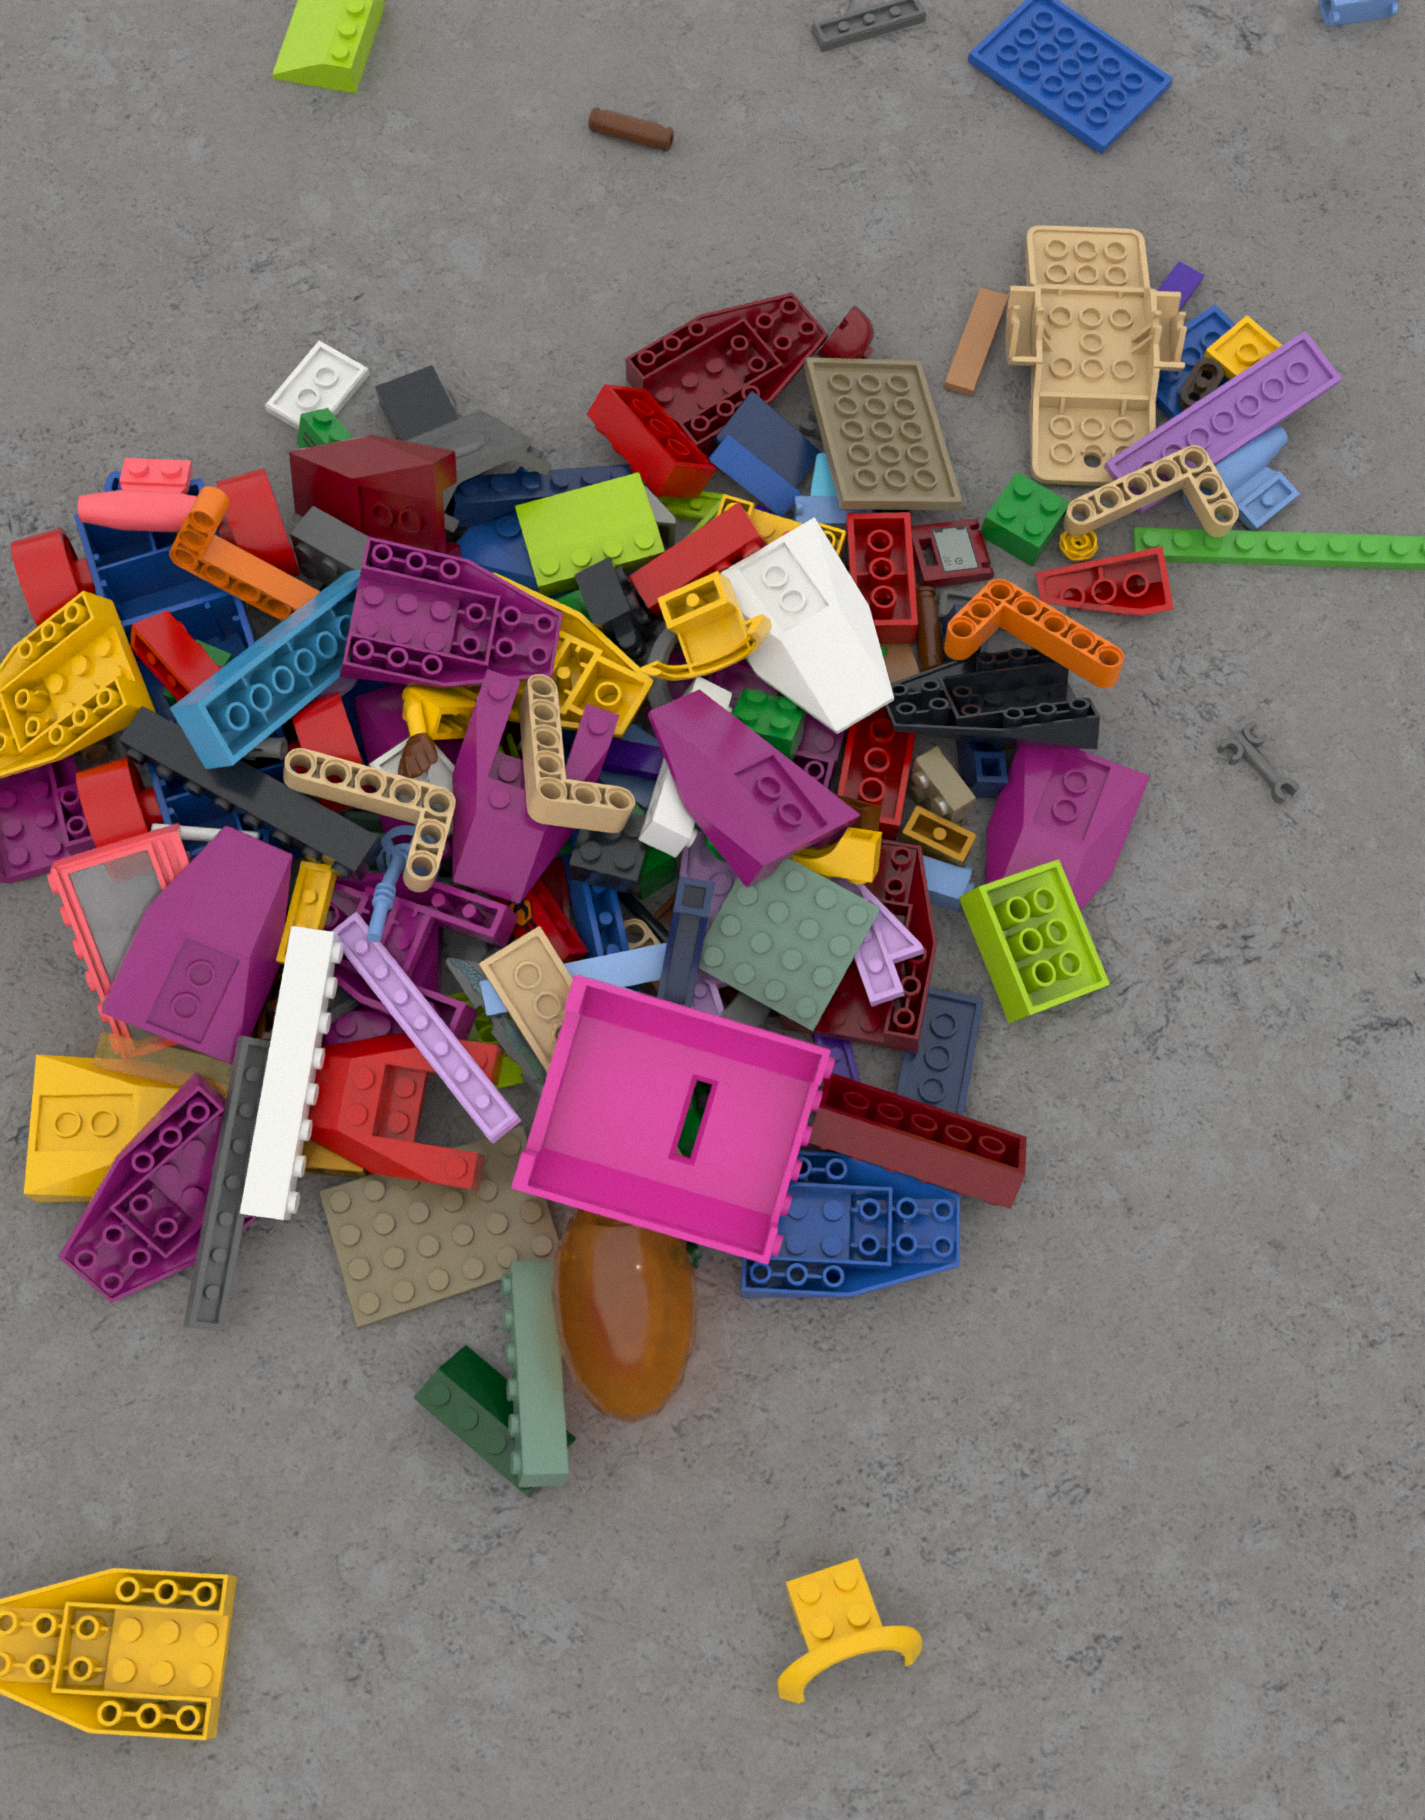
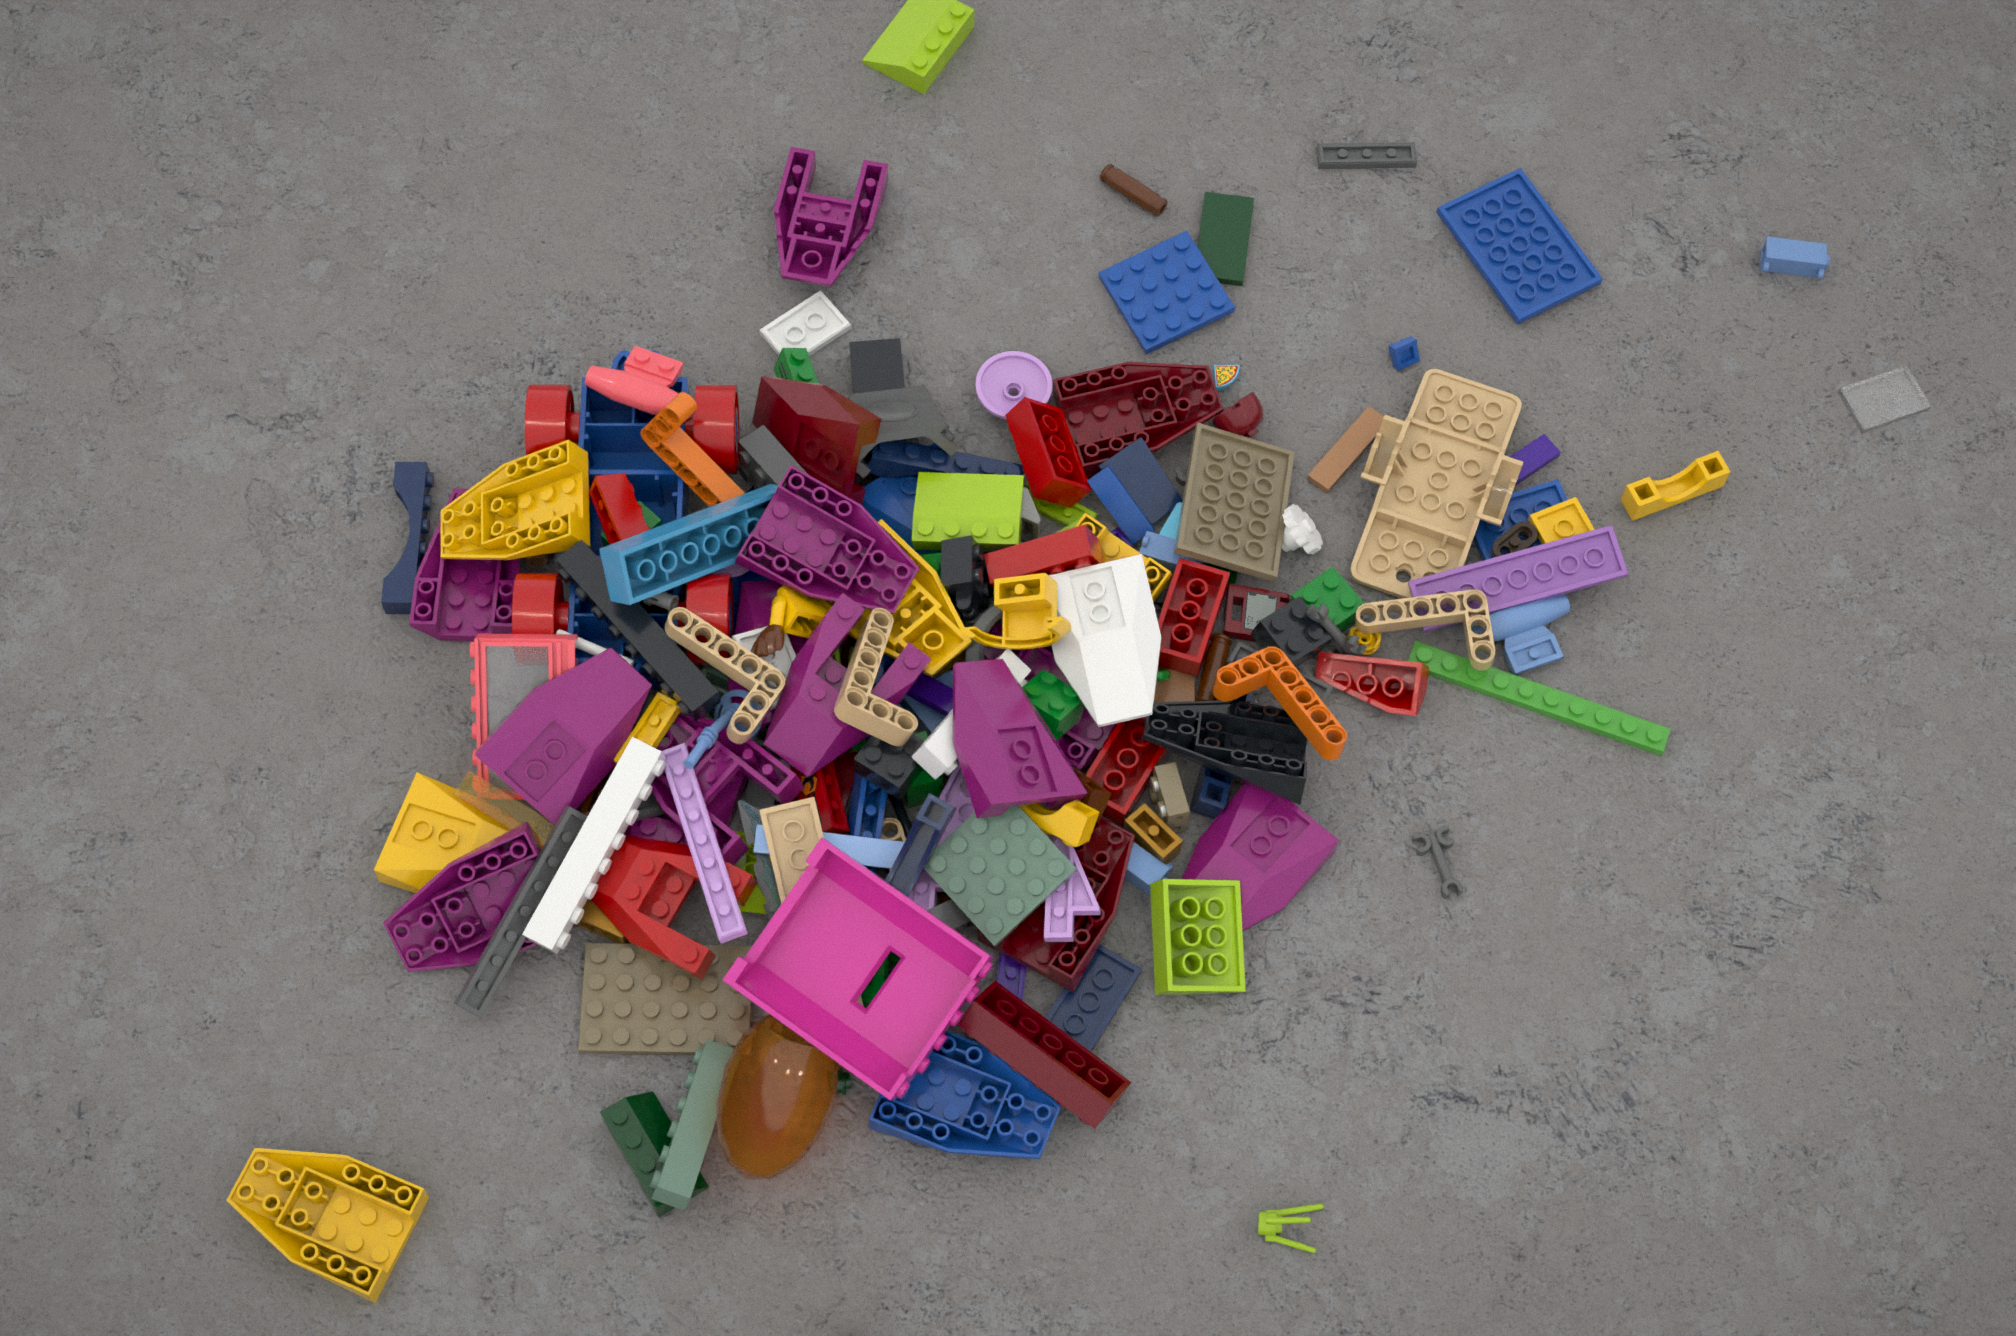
camera: 20 degrees right, 5 degrees down
(296, 272) = (820, 231): none -> magenta wedge
(576, 368) = (1008, 374): none -> lavender dish
(710, 229) = (1166, 292): none -> blue plate
(750, 154) = (1226, 235): none -> dark green tile
(812, 299) = (1225, 375): none -> tile
(964, 445) = (1300, 531): none -> white plant
(995, 218) = (1404, 353): none -> blue tile
(1002, 554) = (1292, 632): none -> black brick
(1054, 551) = (1338, 640): none -> dark grey bar
(1245, 1246) = (1272, 1220): none -> lime plant
(1323, 290) = (1655, 495): none -> yellow arch

